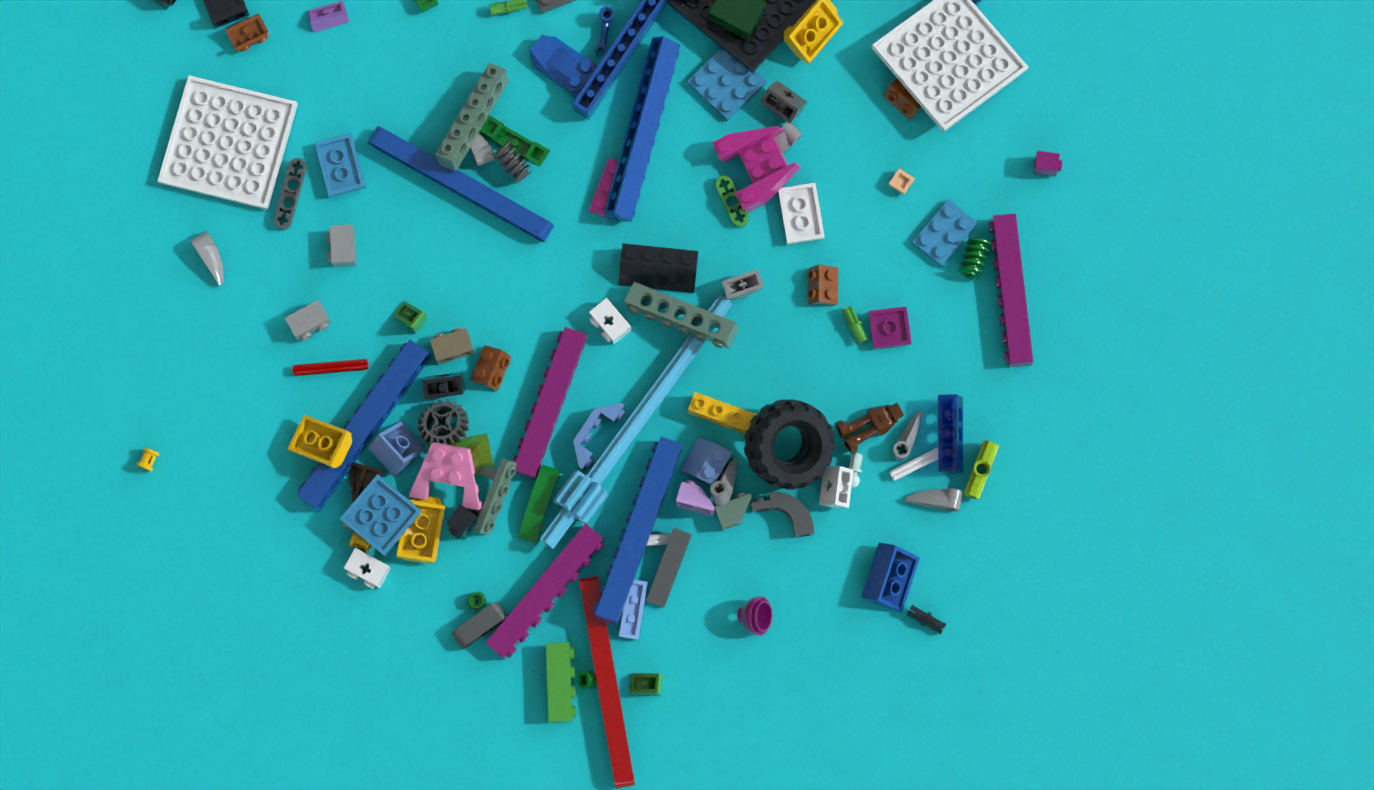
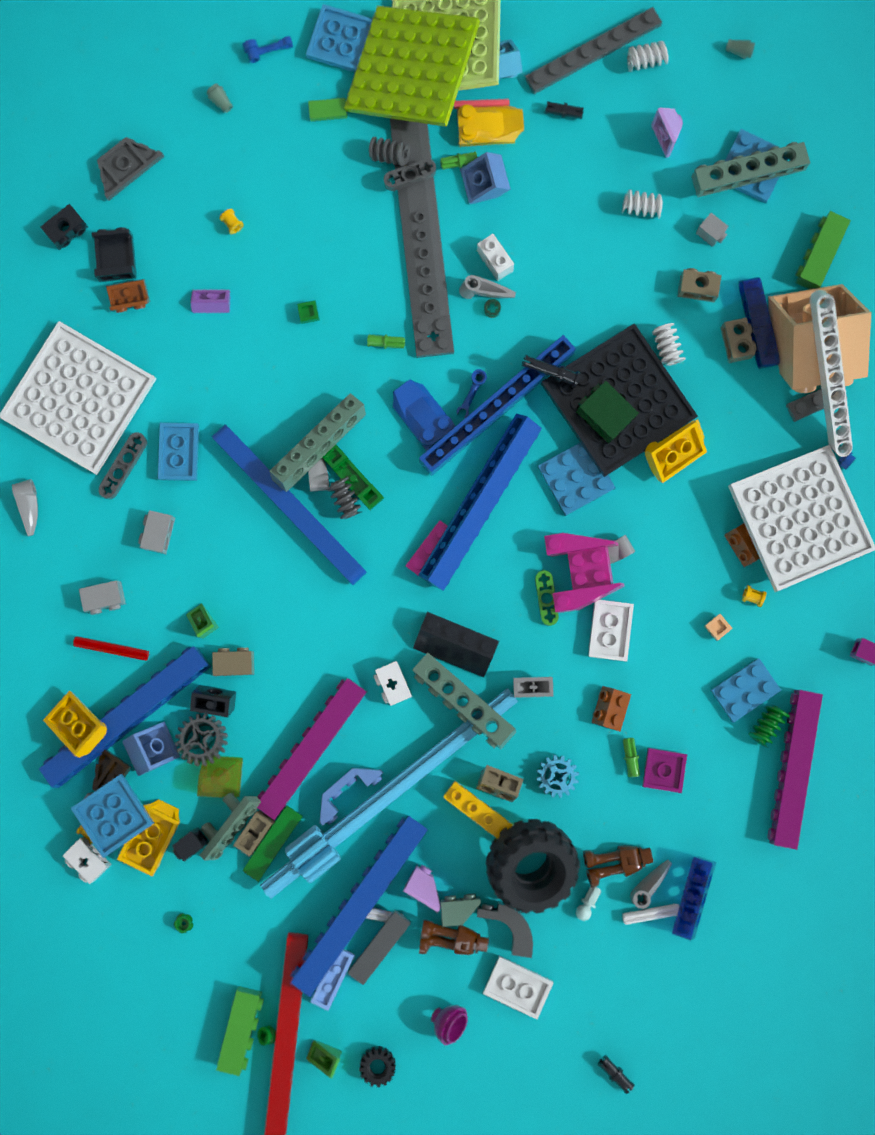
camera: 15 degrees right, 5 degrees up
(449, 466) = (193, 787): bright pink wing -> none
(479, 625) = (178, 949): dark grey beam -> none
(491, 367) = (264, 695): dark orange bracket -> none
(519, 495) = (254, 833): none -> dark tan brick
(545, 591) = (251, 935): magenta brick -> none
(700, 689) = (386, 1075): none -> black tyre
(706, 461) = (446, 852): medium blue slope -> none
(723, 488) = (458, 881): light grey piece -> none
(737, 383) = (499, 783): none -> dark tan brick
(748, 536) = (463, 940): none -> reddish brown piece
(783, 101) = (626, 514): dark grey brick -> none
(784, 356) = (568, 770): none -> medium azure gear
(810, 566) = (518, 987): none -> white plate
(836, 487) = (566, 918): white brick -> none
(890, 577) = (592, 1022): blue slope -> none
(926, 143) = (754, 596): none -> yellow bush
(943, 499) = (662, 955): light grey piece -> none
(977, 481) = (705, 952): lime piece -> none

